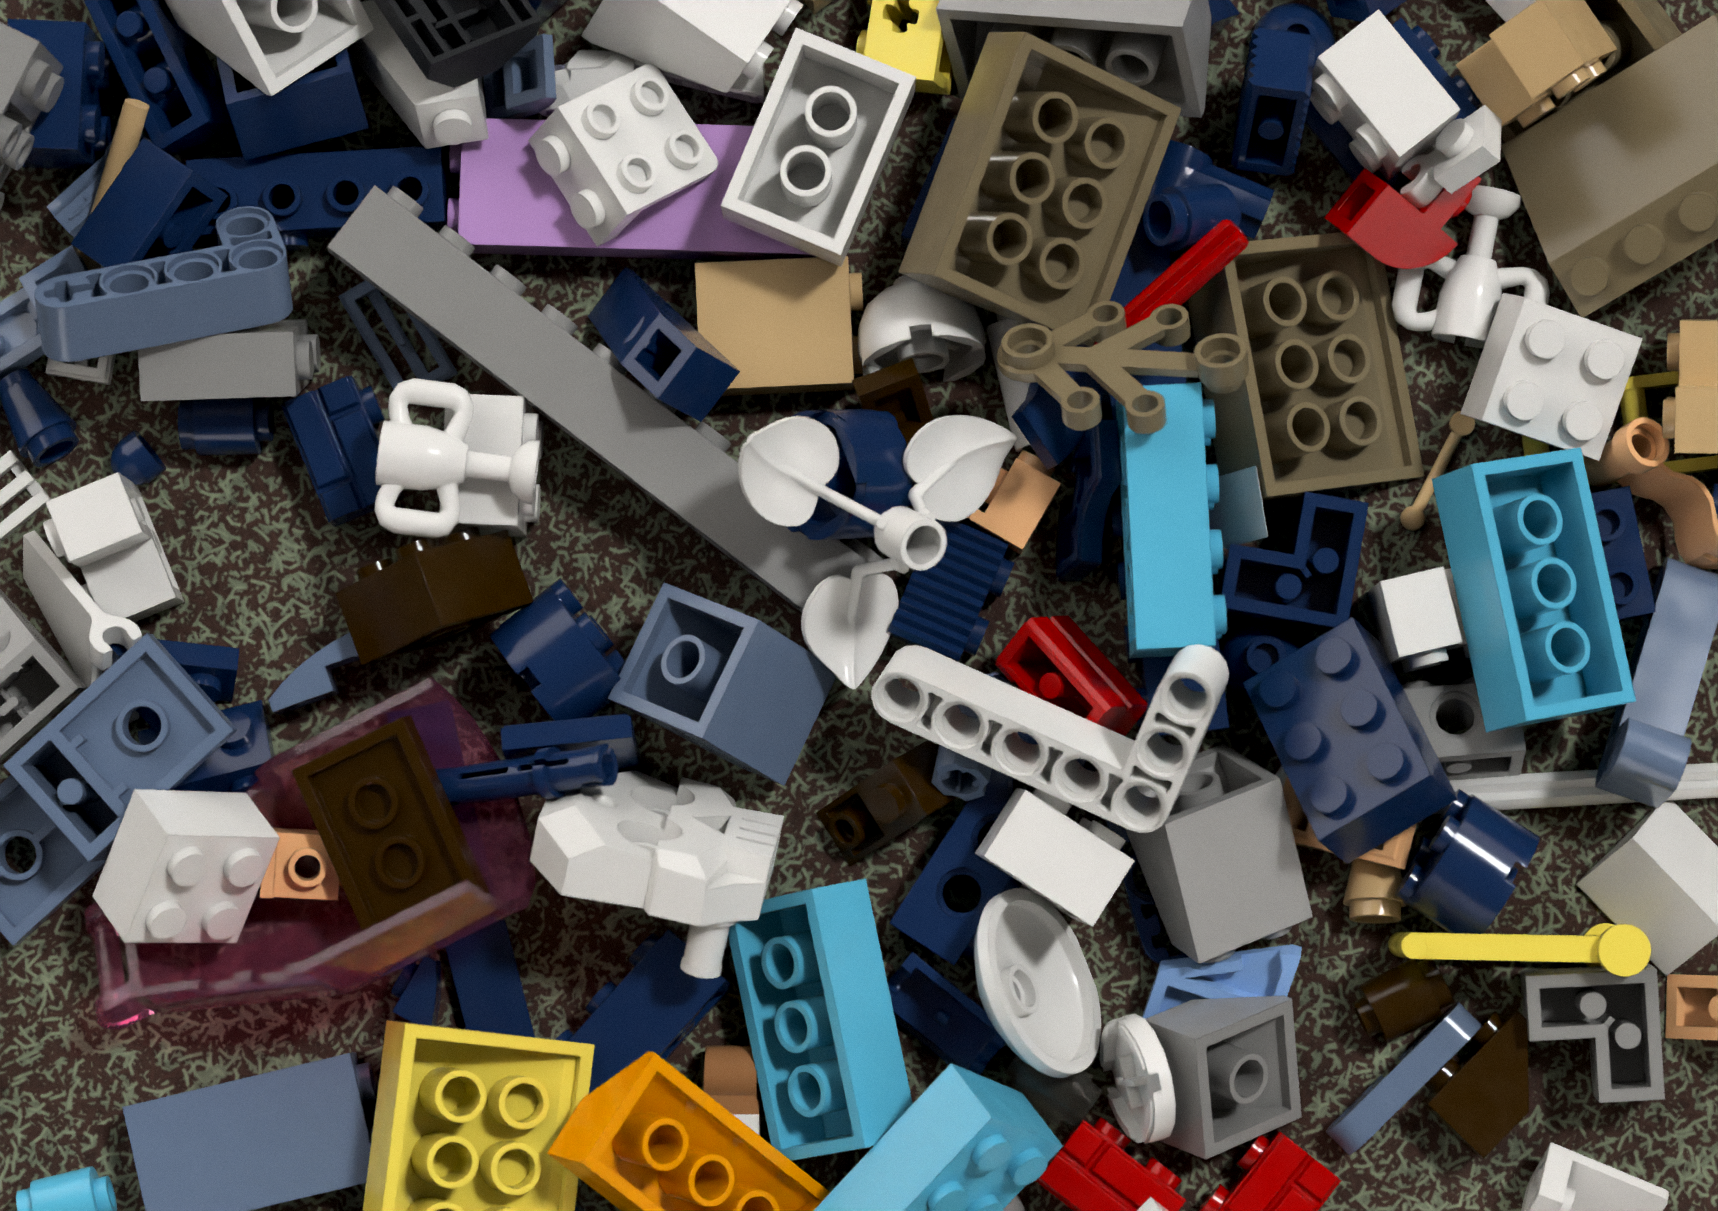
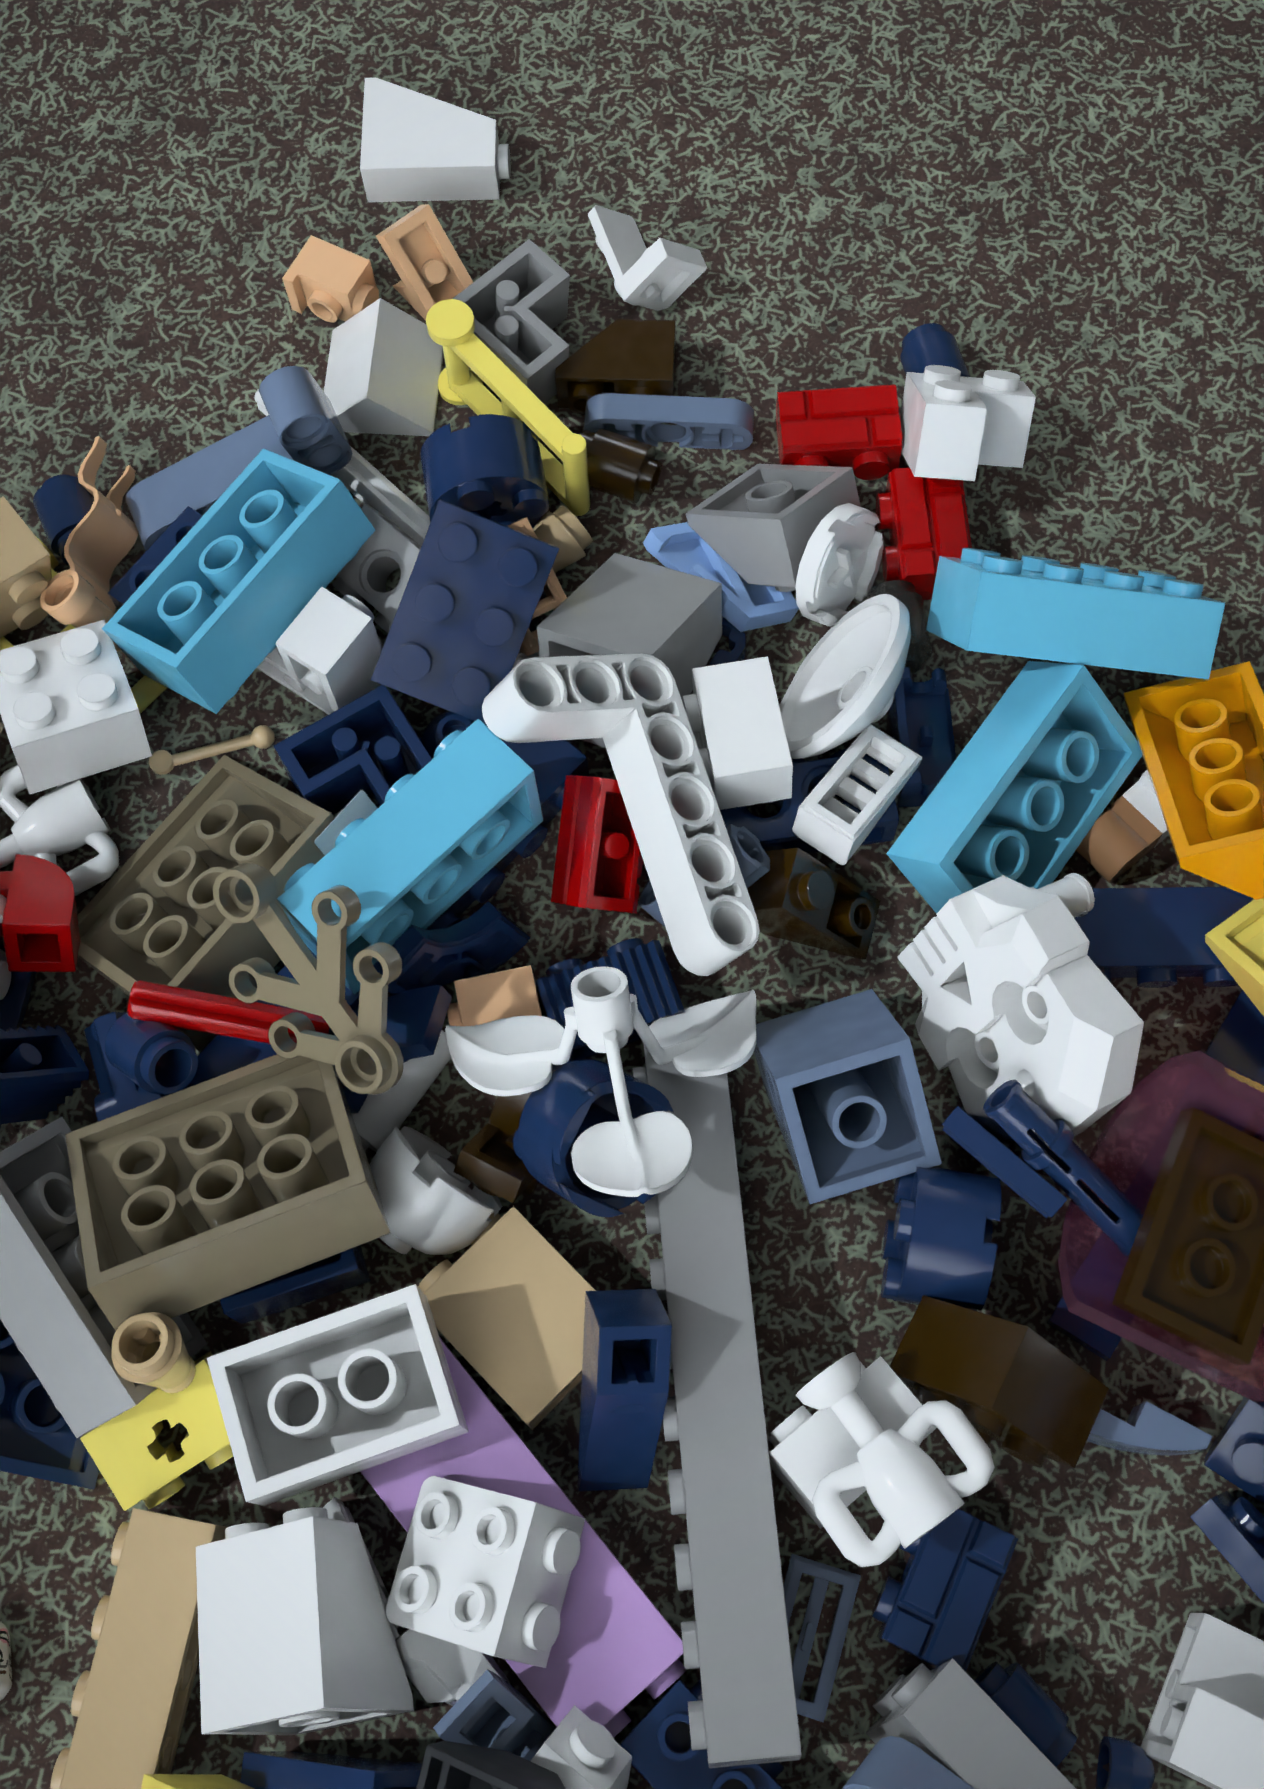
camera: 130 degrees left, 15 degrees down
(924, 851) = (834, 826): none -> white slope
(965, 35) = (152, 1353): none -> tan cone

